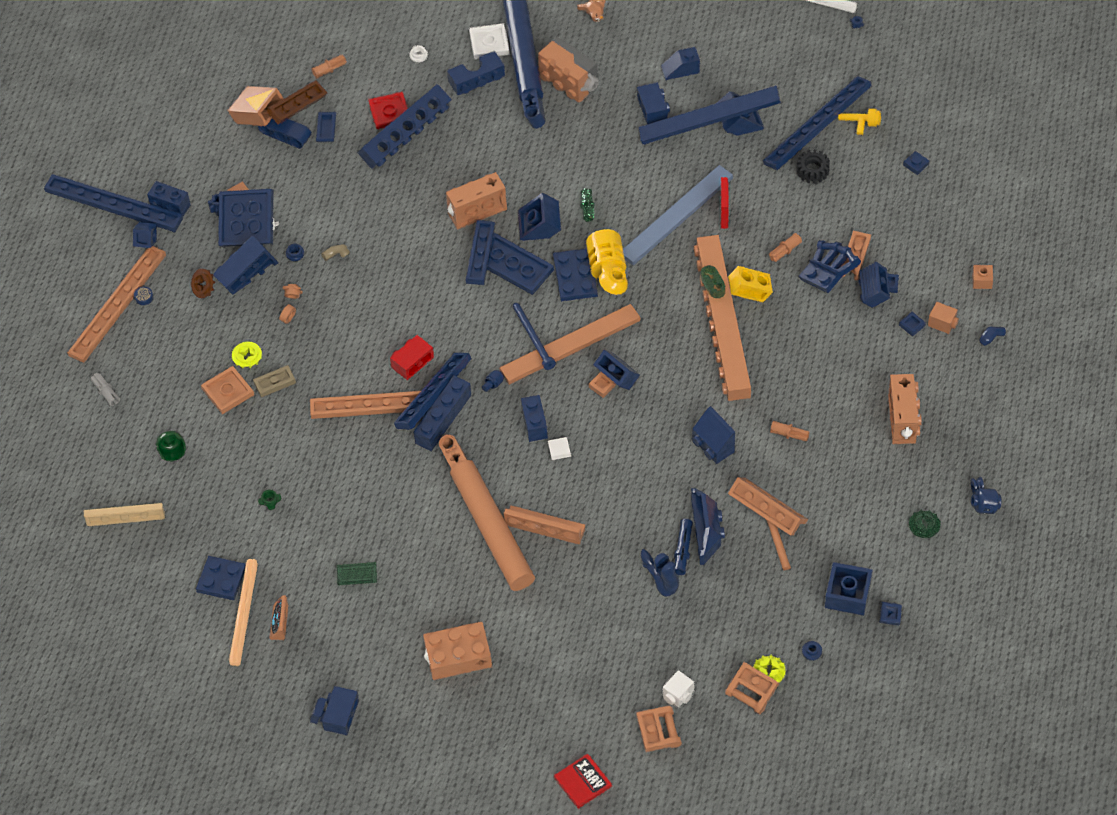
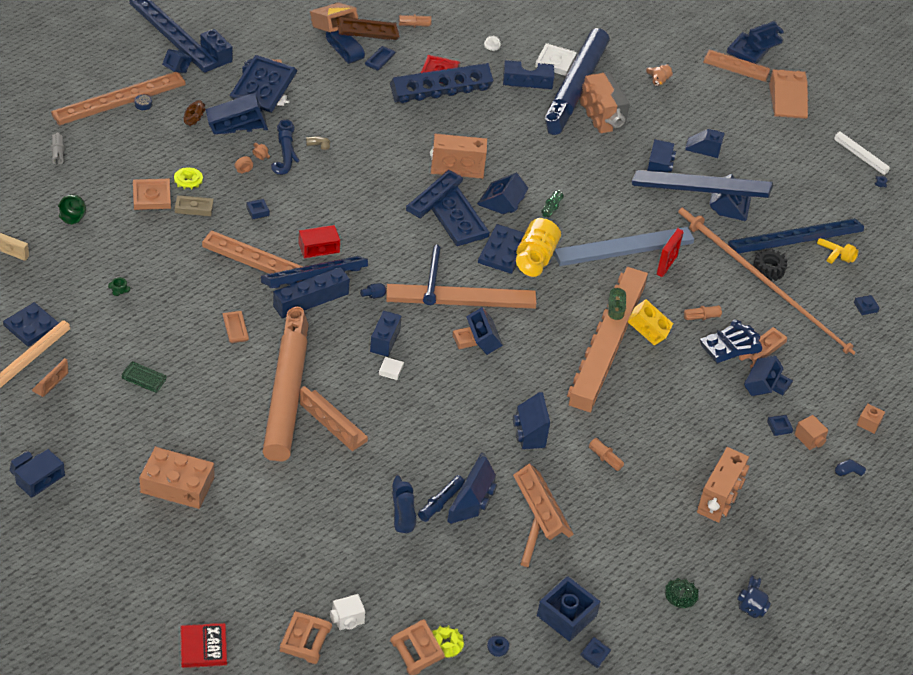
camera: 20 degrees right, 10 degrees down
(317, 279) = (288, 153): none -> dark blue plant
(333, 353) = (257, 208): none -> dark blue plate
(399, 481) = (235, 327): none -> nougat tile
(743, 162) = (697, 224): none -> nougat piece

